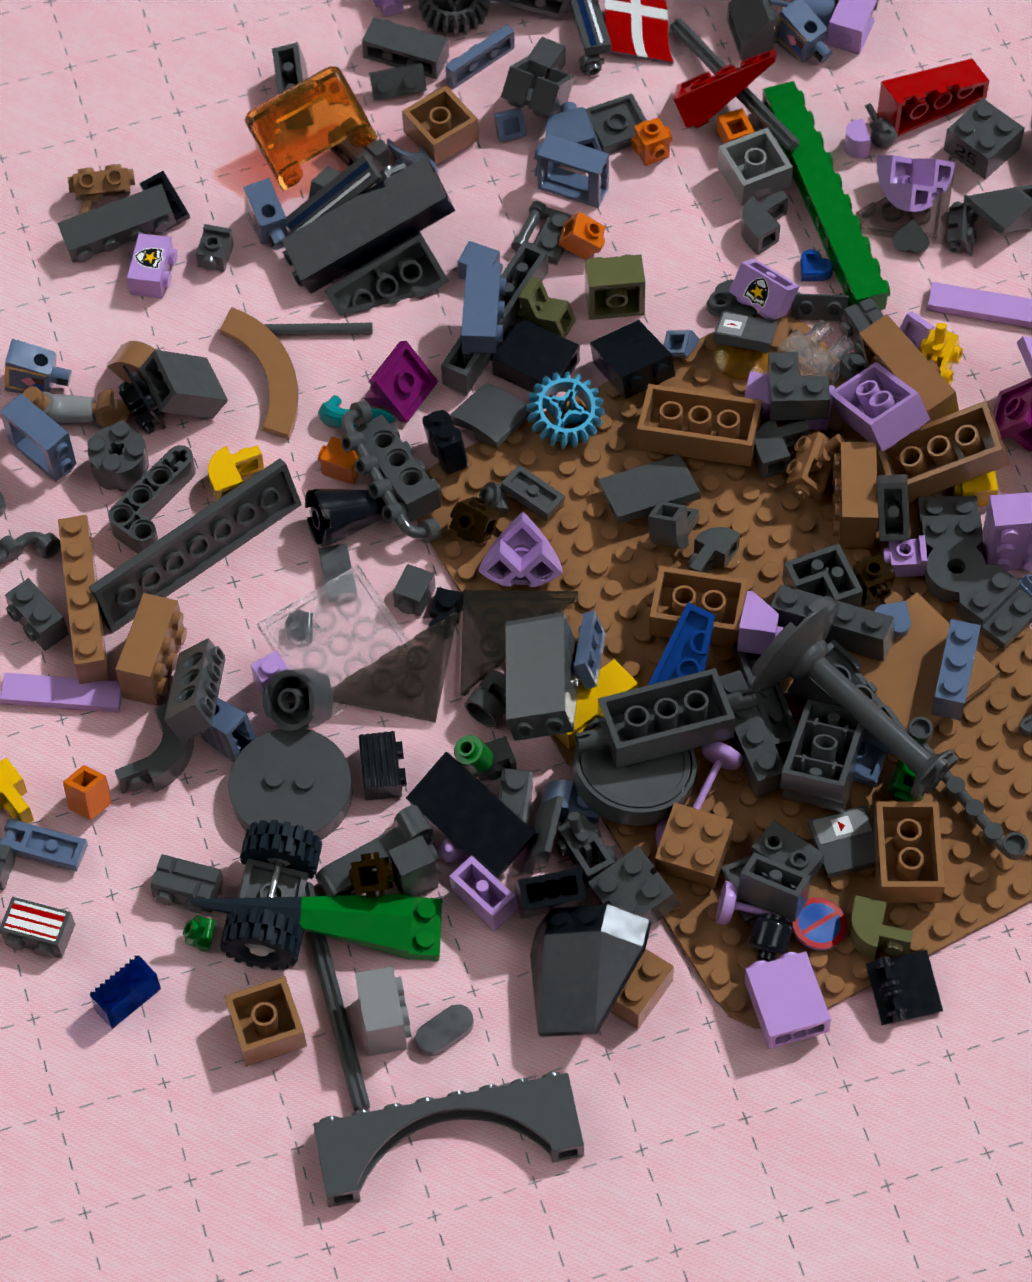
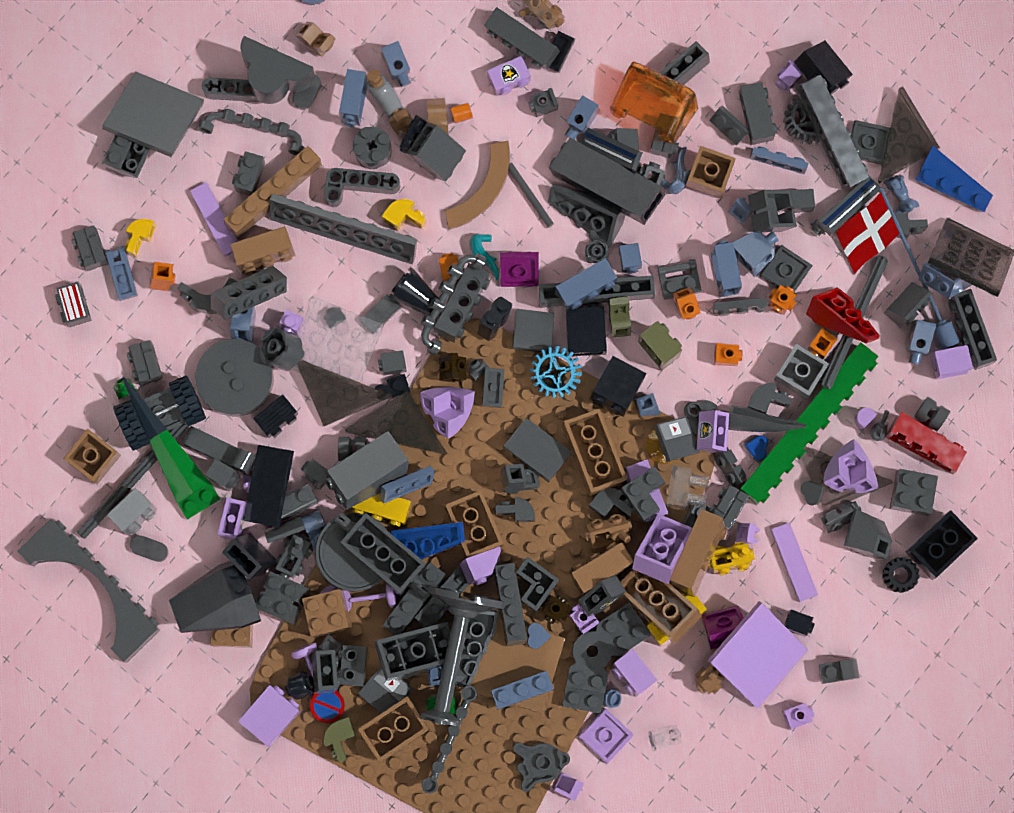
camera: 55 degrees right, 20 degrees up
(125, 991) = (65, 374): clear blue brick -> none
(156, 335) = (461, 113): none -> orange brick
(361, 877) = (199, 458): dark brown brick -> none
(444, 288) = (599, 246): none -> dark grey plate
(473, 754) = (302, 464): green brick -> none
(626, 187) = (740, 306): none -> dark grey plate
(676, 233) = (721, 358): none -> orange brick
(781, 246) = (751, 420): none -> dark grey piece
(904, 987) = (319, 772): black hinge -> none
(905, 63) = (938, 417): none -> dark grey wheel

